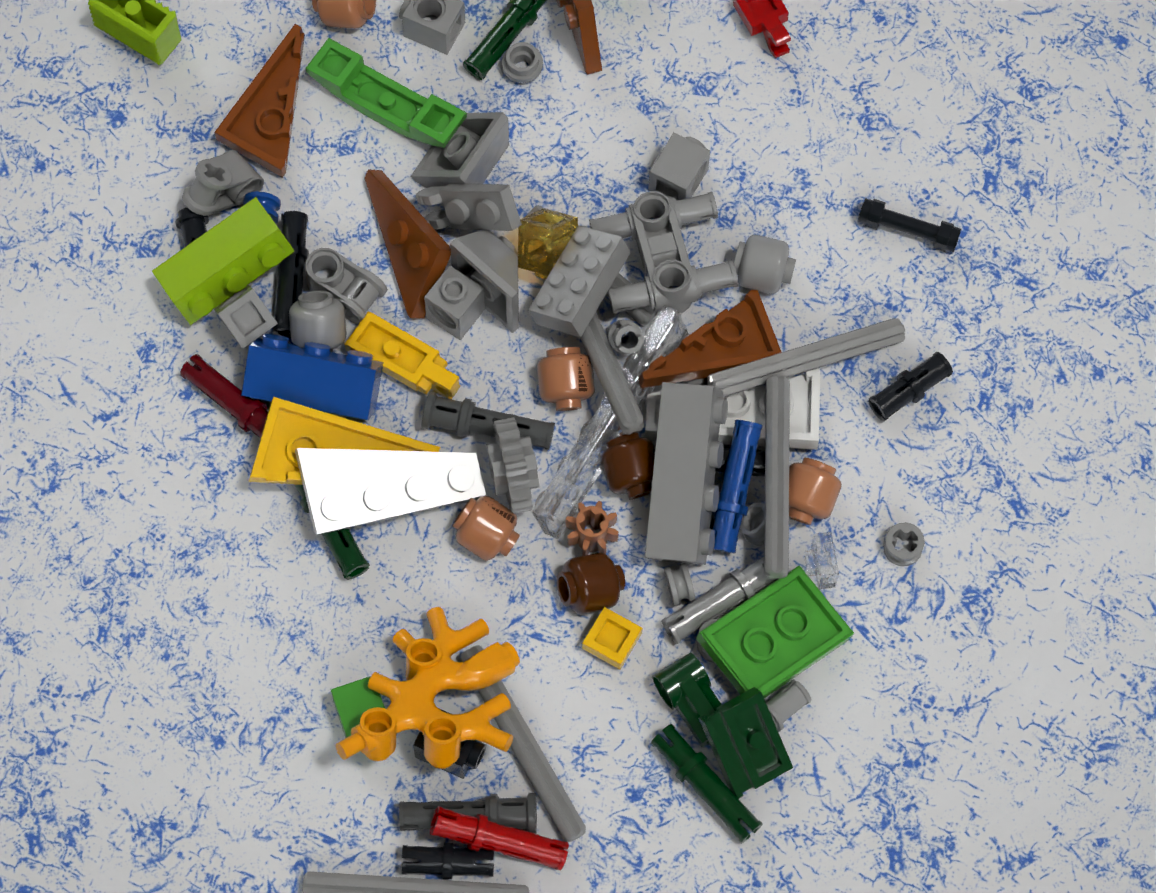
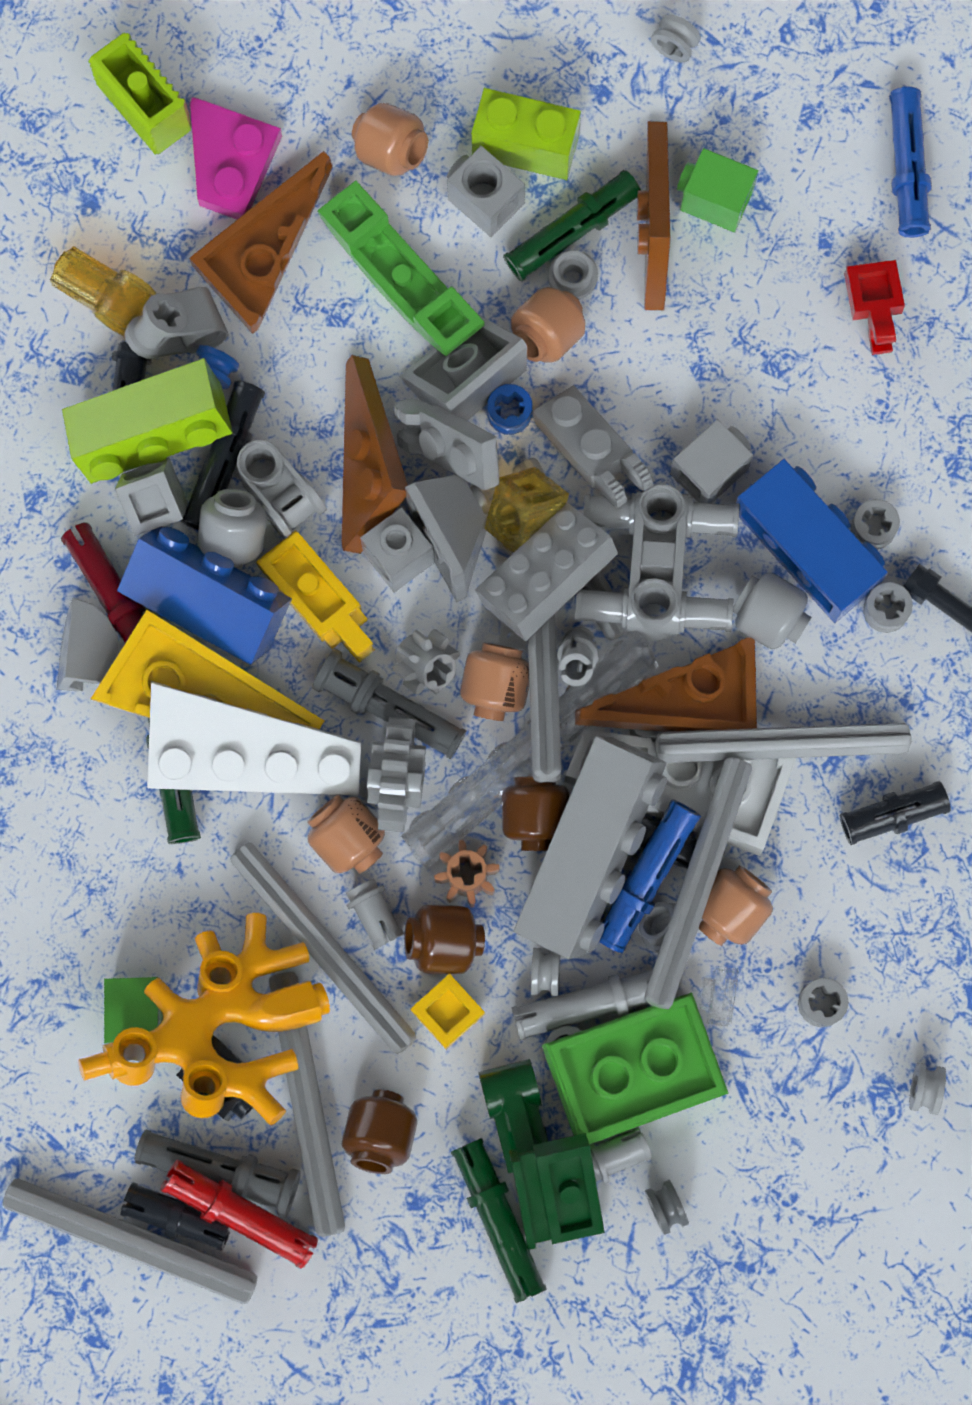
camera: 20 degrees right, 10 degrees up
(158, 178) = (109, 294): none -> clear yellow piece
(220, 51) = (230, 157): none -> dark pink wing
(228, 448) = (86, 647): none -> light grey brick
(499, 622) = (323, 948): none -> light grey axle
(505, 379) = (426, 661): none -> light grey gear
(507, 162) = (506, 394): none -> blue bush
(519, 99) = (549, 324): none -> nougat head
(528, 582) = (372, 910): none -> light grey pin
(581, 182) = (590, 444): none -> light grey hinge
(589, 744) = (379, 1132): none -> reddish brown head
(776, 204) = (811, 539): none -> blue brick
(810, 186) = (889, 519): none -> light grey bush
(835, 732) = (666, 1207): none -> dark grey bush
(857, 228) = (877, 618): none -> light grey bush
(1007, 581) = (927, 1088): none -> light grey bush

